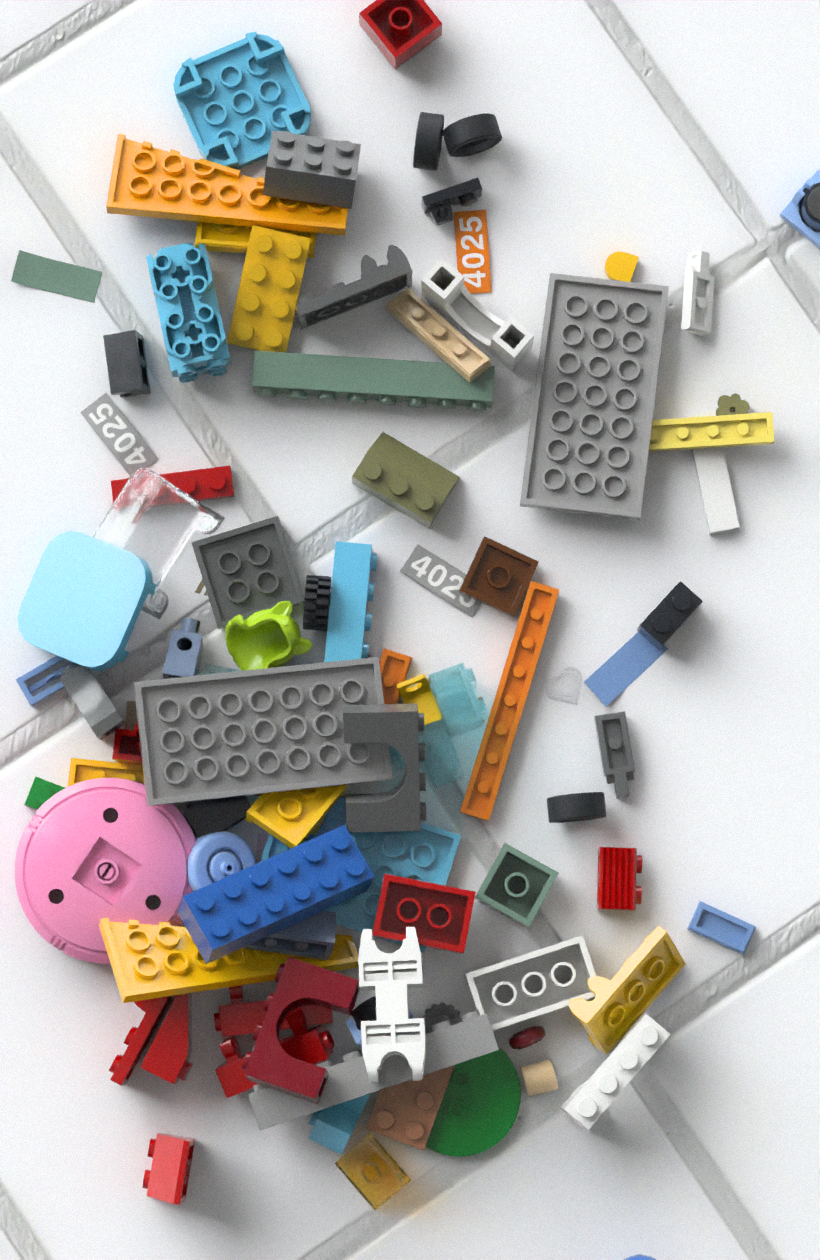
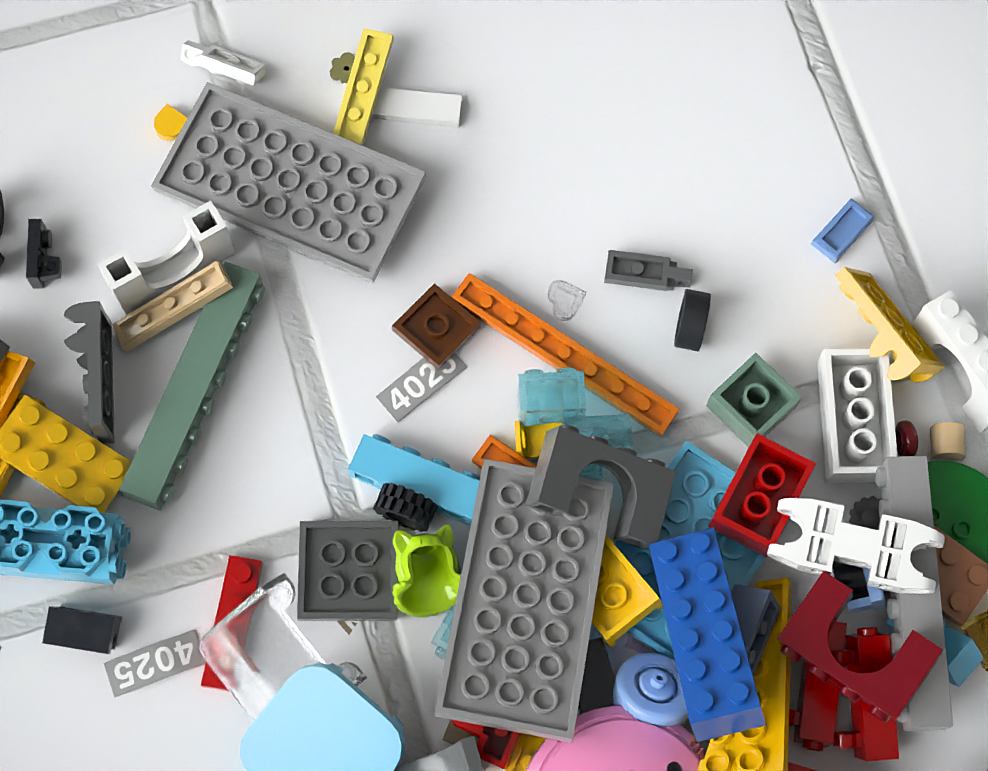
camera: 70 degrees left, 10 degrees down
(181, 662) = (425, 663): sand blue torso -> none
(405, 479) = (308, 386): olive slope -> none
(473, 250) = (90, 250): orange sticker -> none
(618, 879) = (771, 307): red brick -> none
(623, 668) = (561, 239): medium blue sticker -> none
(669, 615) = (528, 180): black brick -> none

